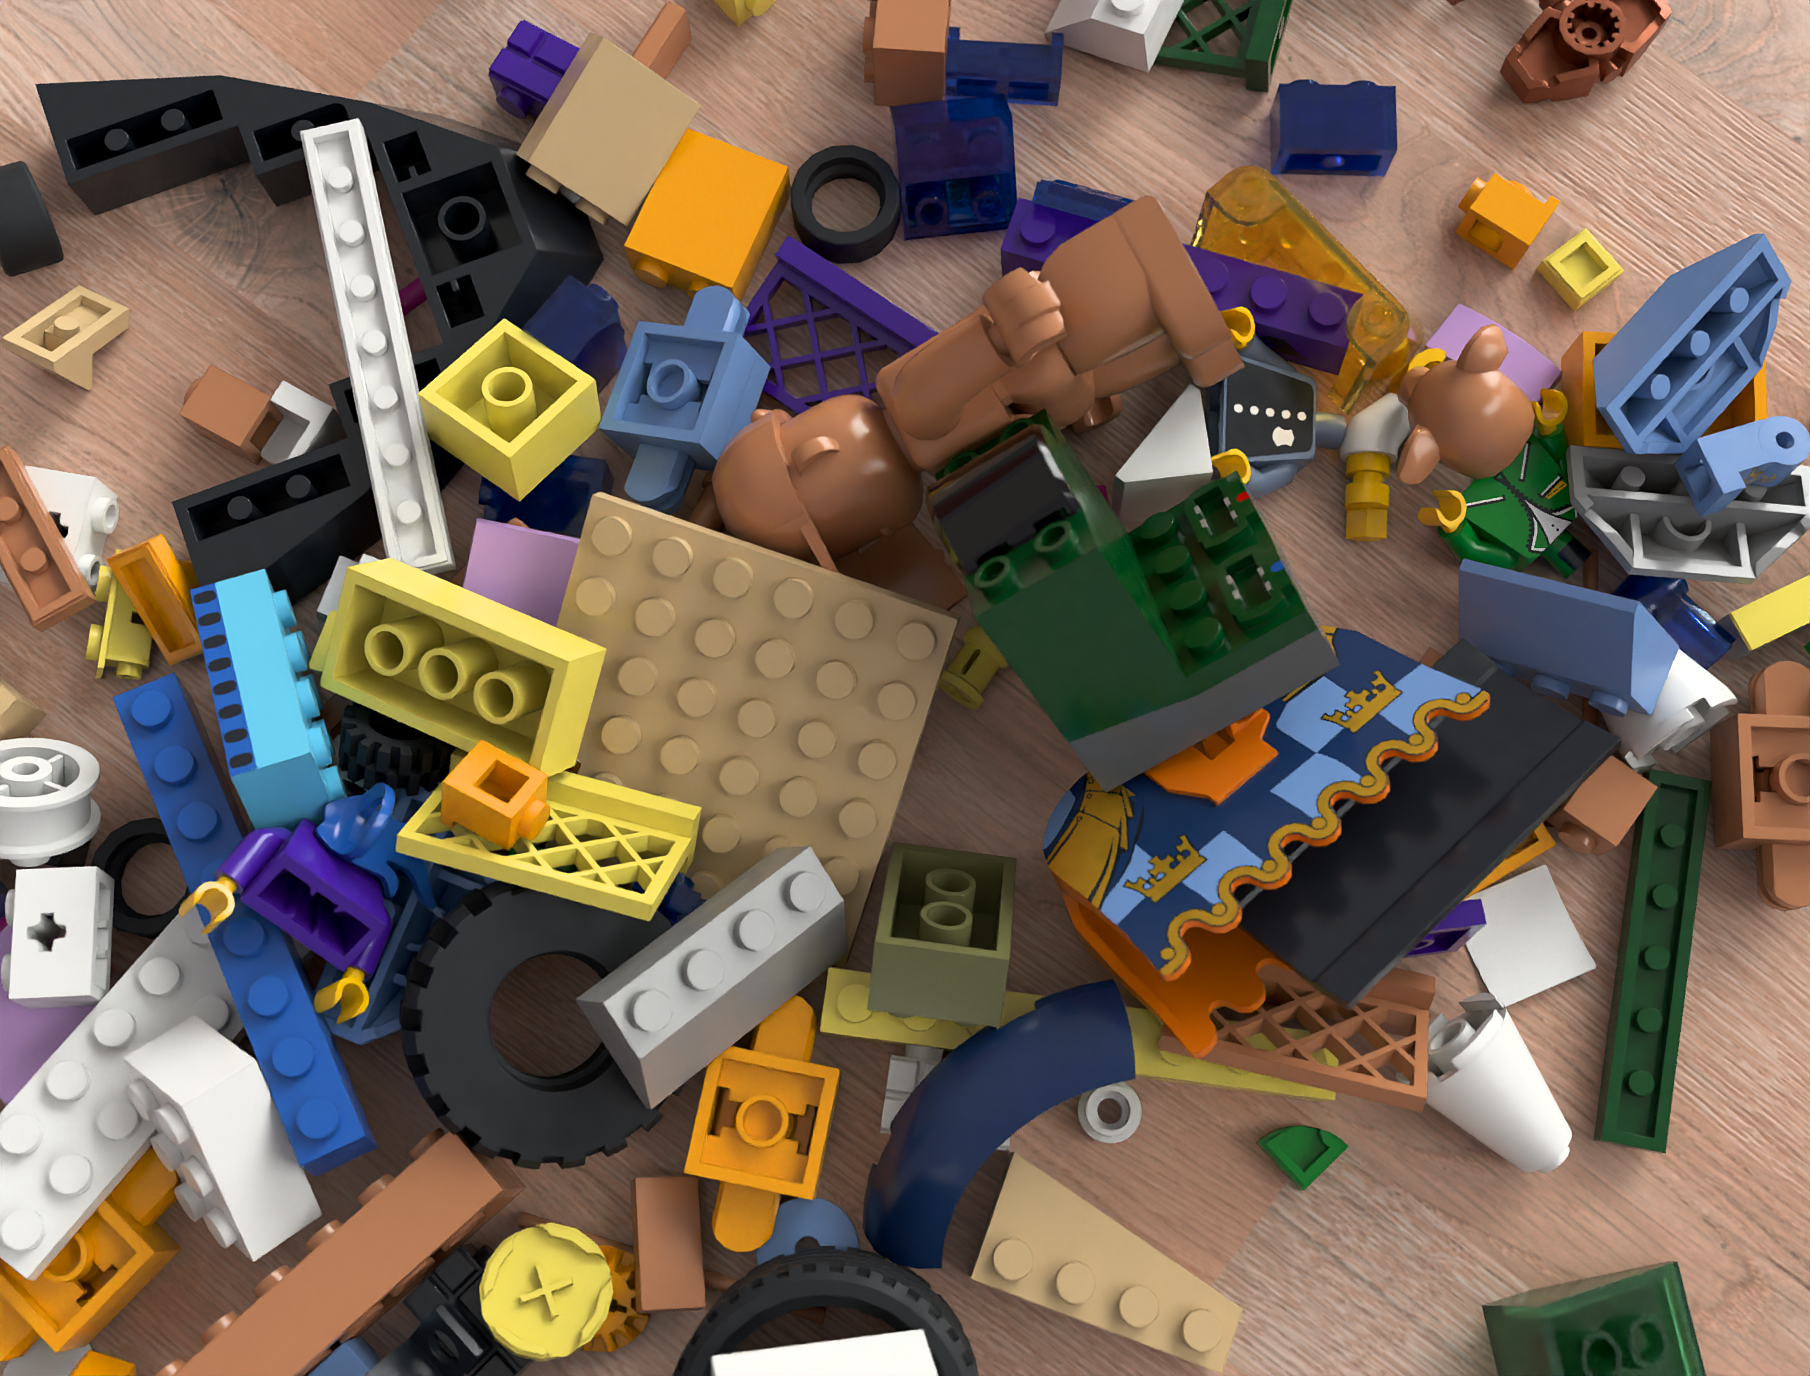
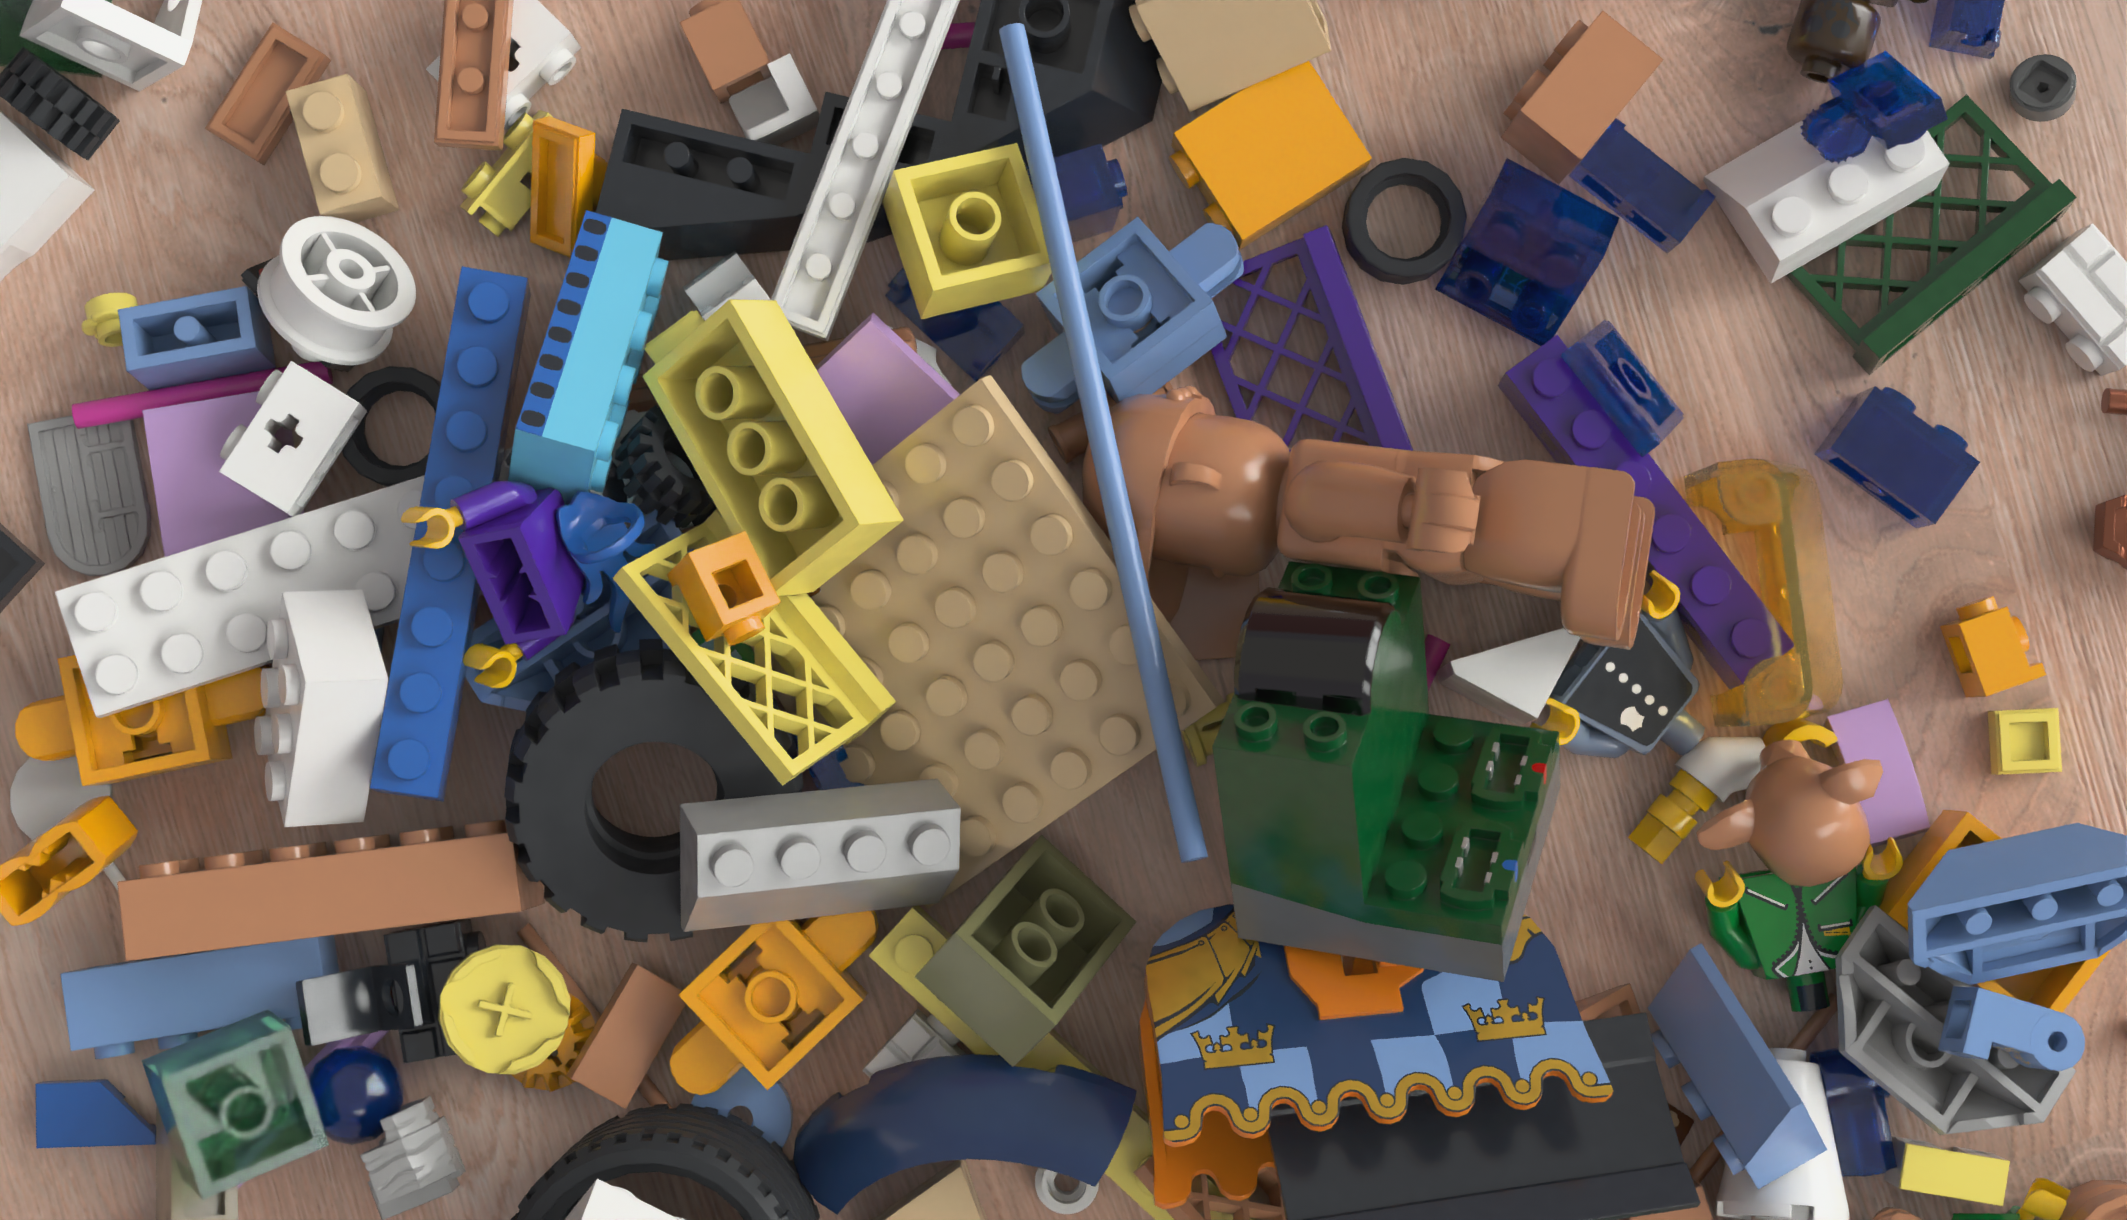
camera: 35 degrees right, 10 degrees up
(738, 492) = (1103, 446): none -> medium blue piece

